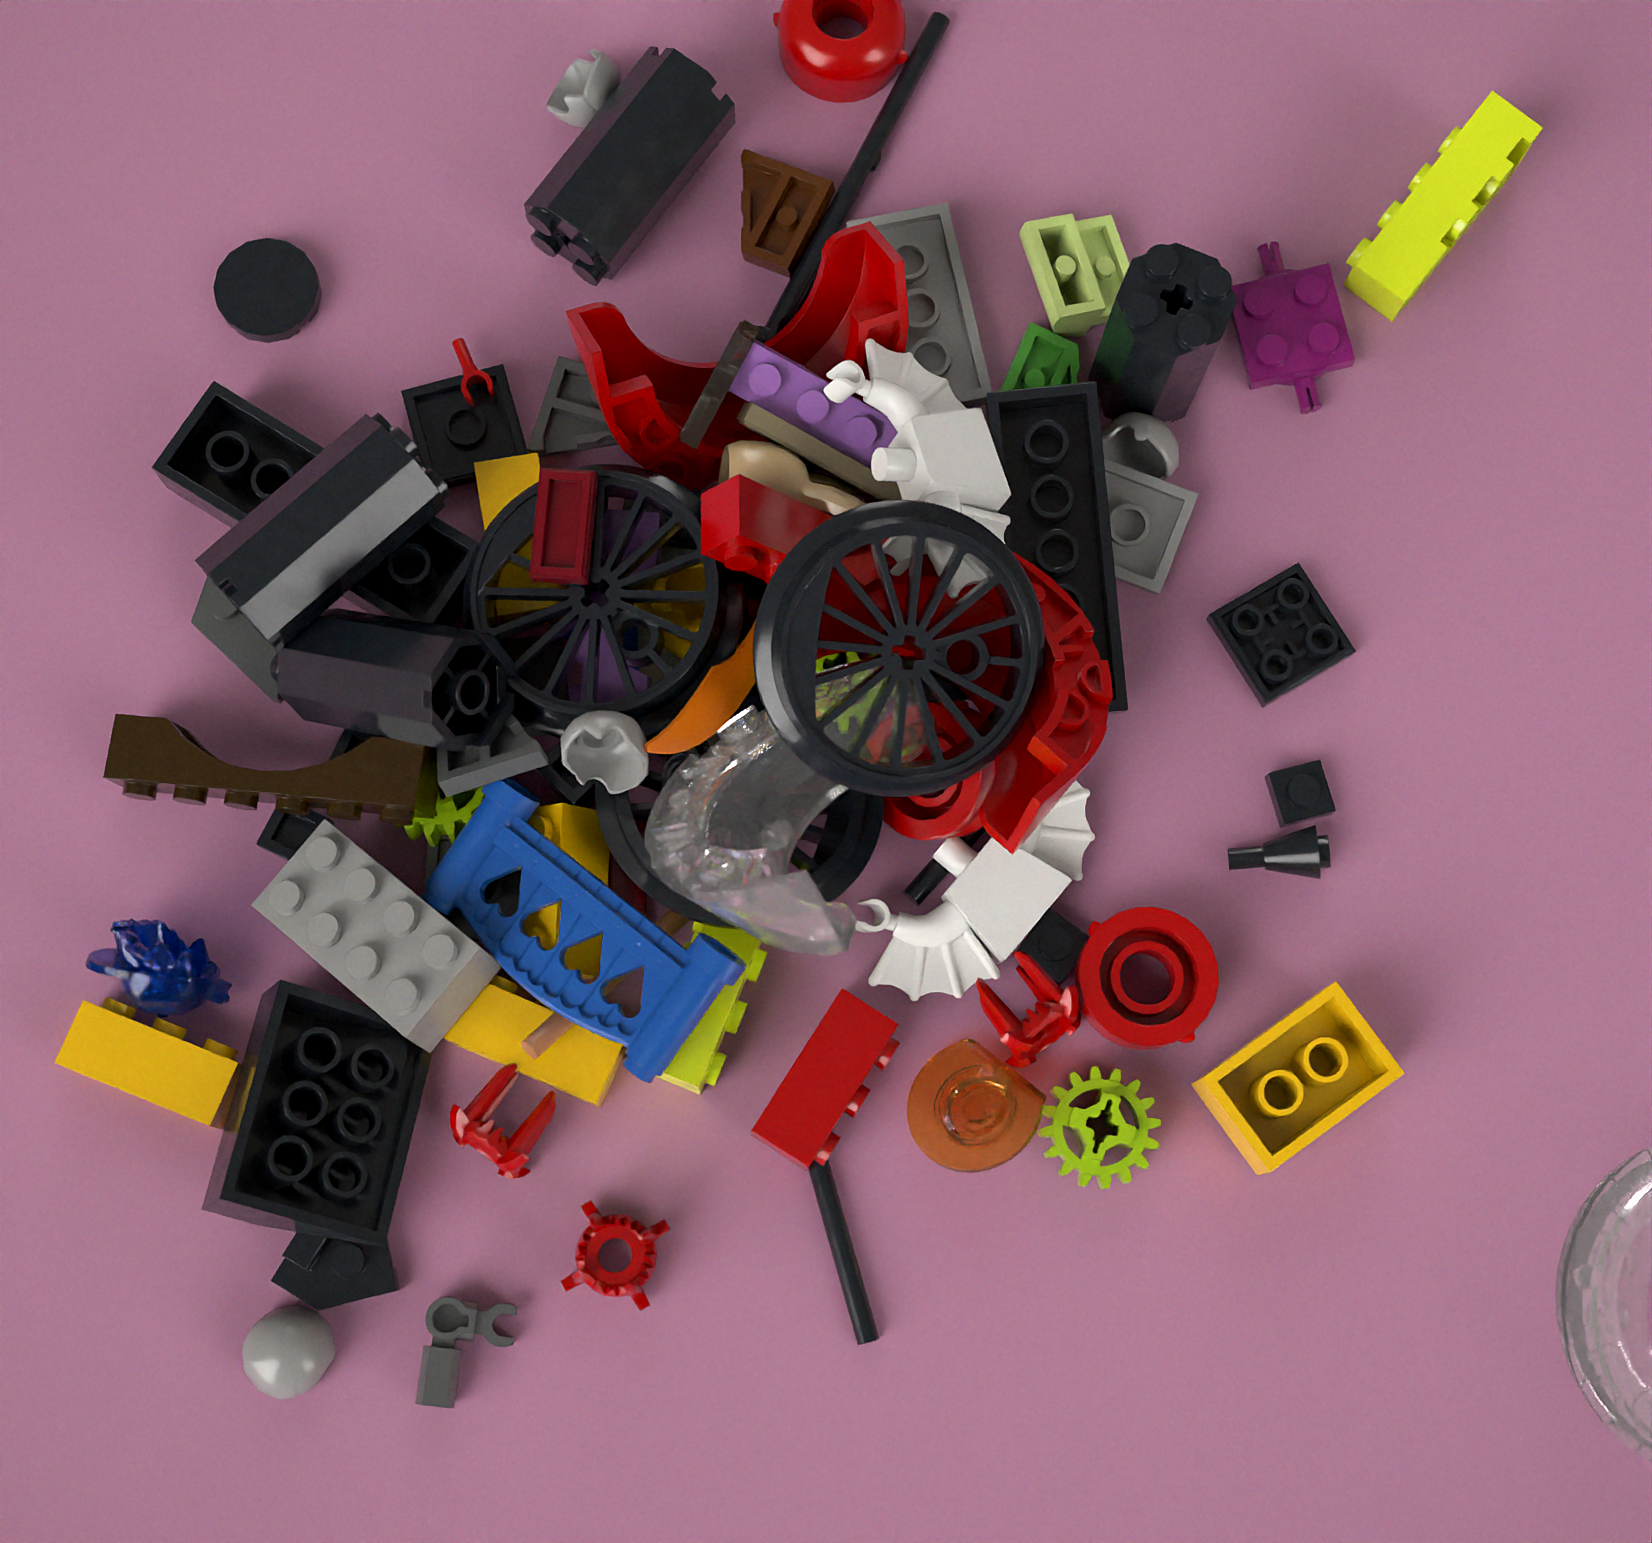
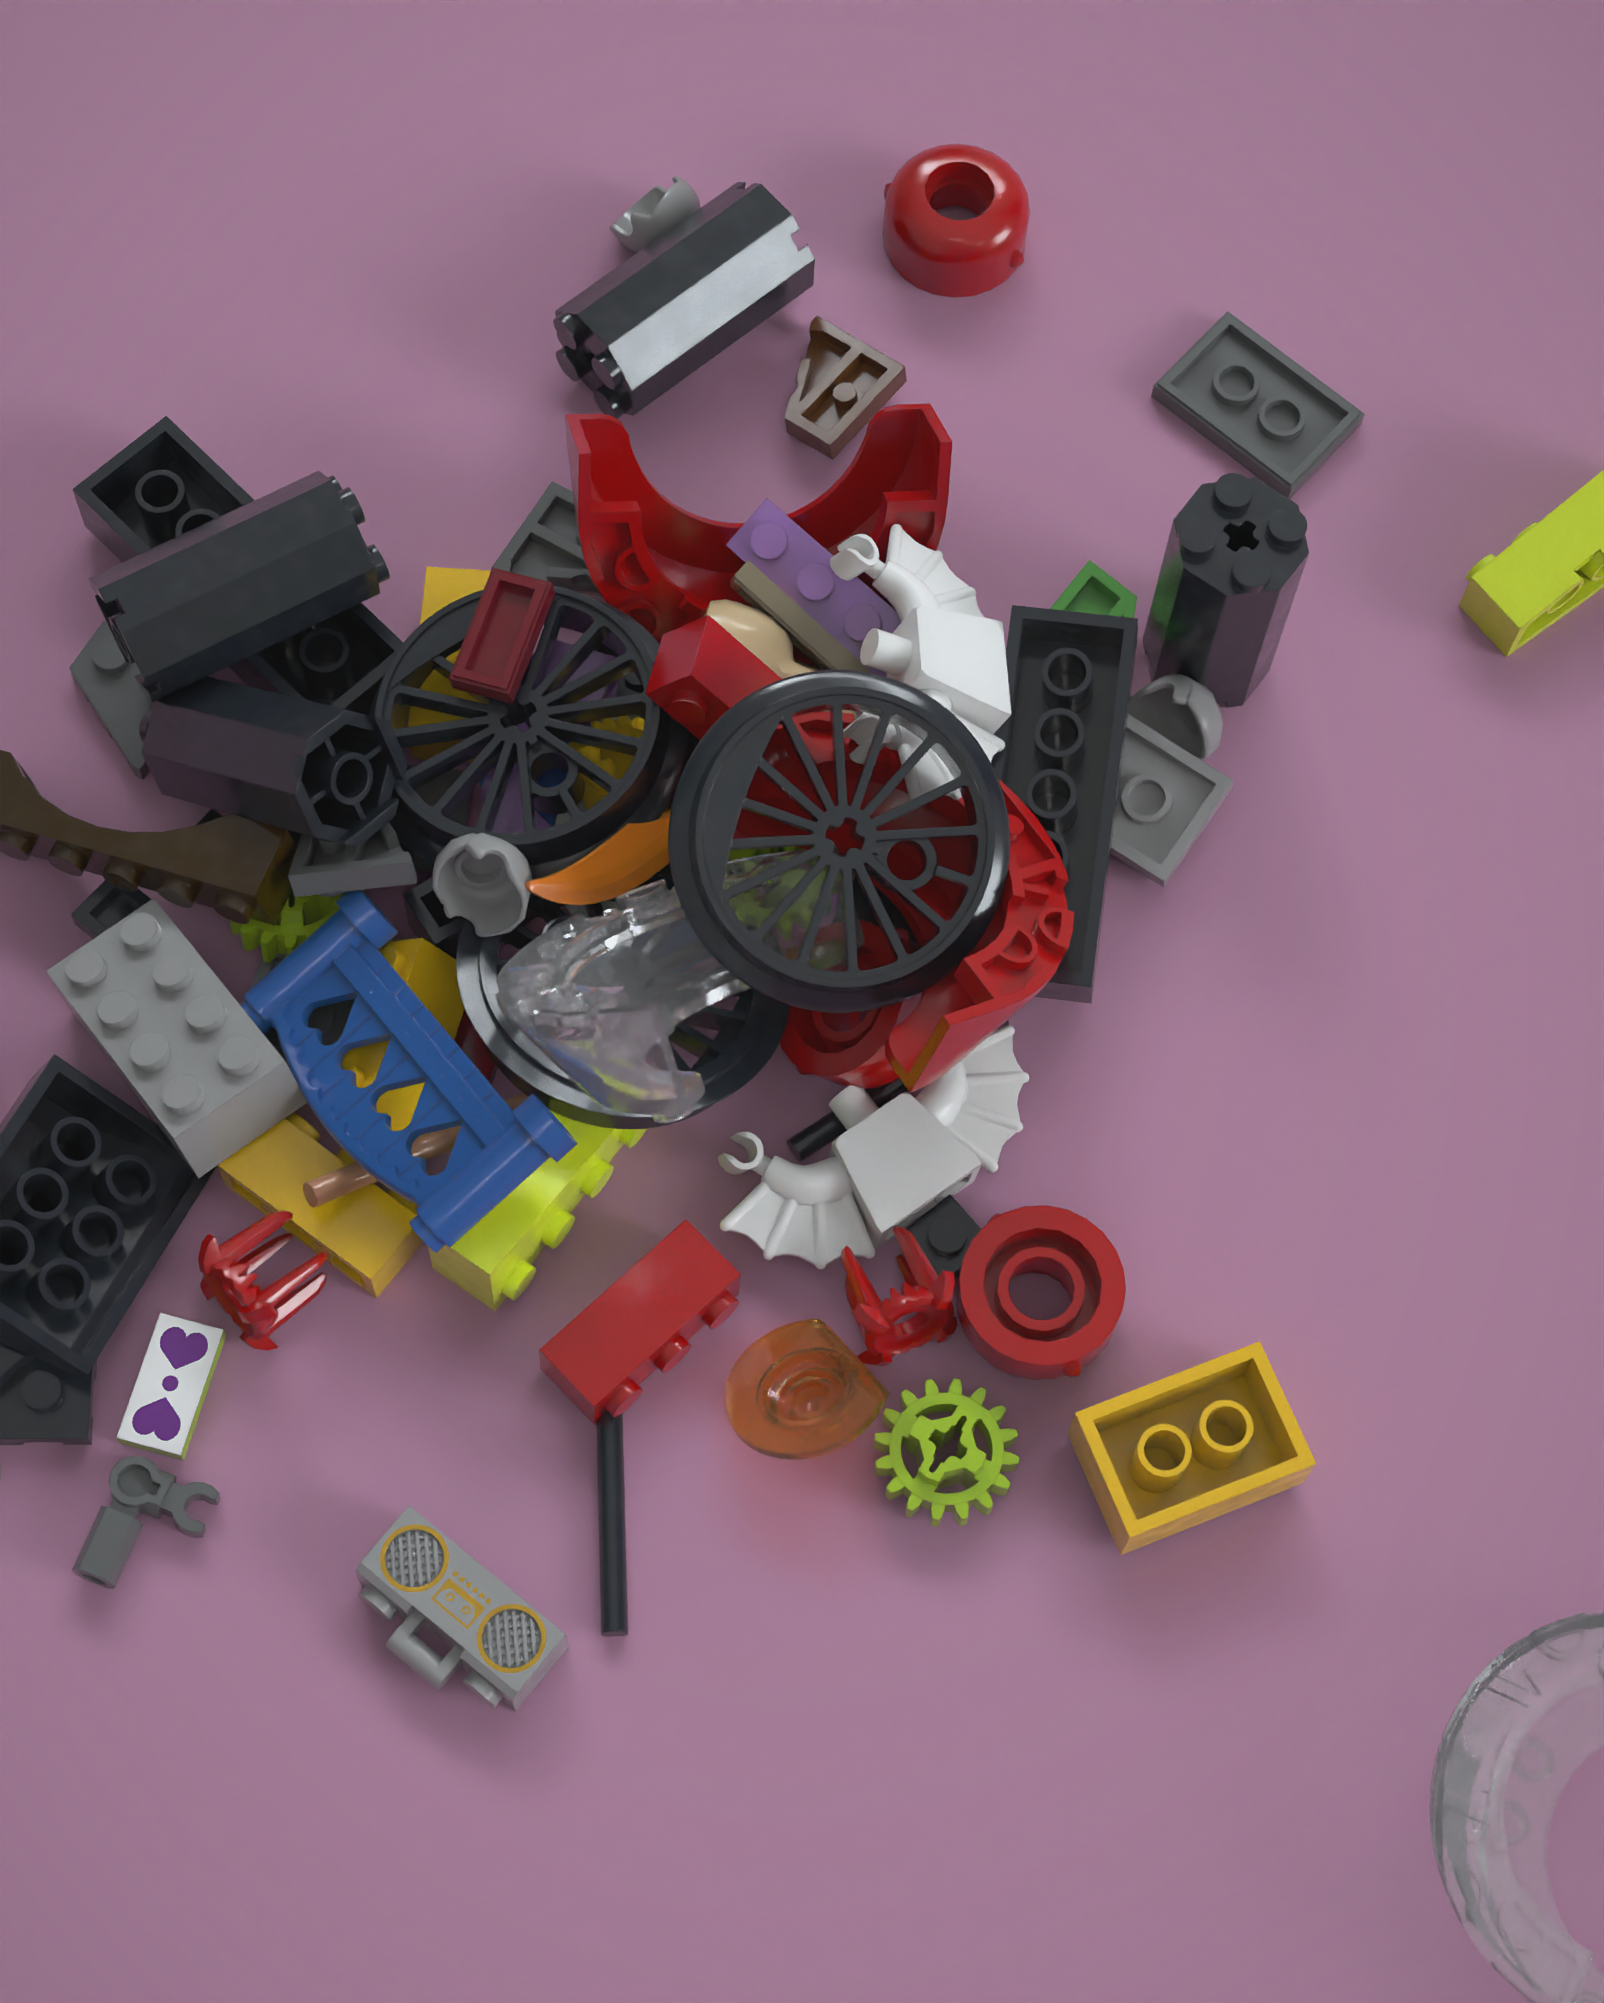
camera: 15 degrees right, 10 degrees down
(267, 290) = (253, 348): black tile -> none
(453, 1227) = (171, 1386): none -> tile
(457, 434) = (429, 526): black tile -> none
(470, 371) = (450, 478): red hand -> none
(643, 1255) = (356, 1494): red piece -> none
(719, 384) = (710, 541): clear smoke tile -> none
(719, 1343) = (441, 1587): none -> light grey piece
(864, 162) = (950, 356): black bar -> none
(940, 309) = (988, 510): light grey plate -> none
(1075, 269) = (1139, 511): yellowish green brick -> none
(1135, 143) = (1257, 405): none -> dark grey tile
(1280, 635) = (1295, 962): black tile -> none
(1290, 327) = (1385, 634): magenta plate -> none
(1295, 854) = (1251, 1202): black cone -> none
(1300, 793) = (1275, 1140): black plate -> none

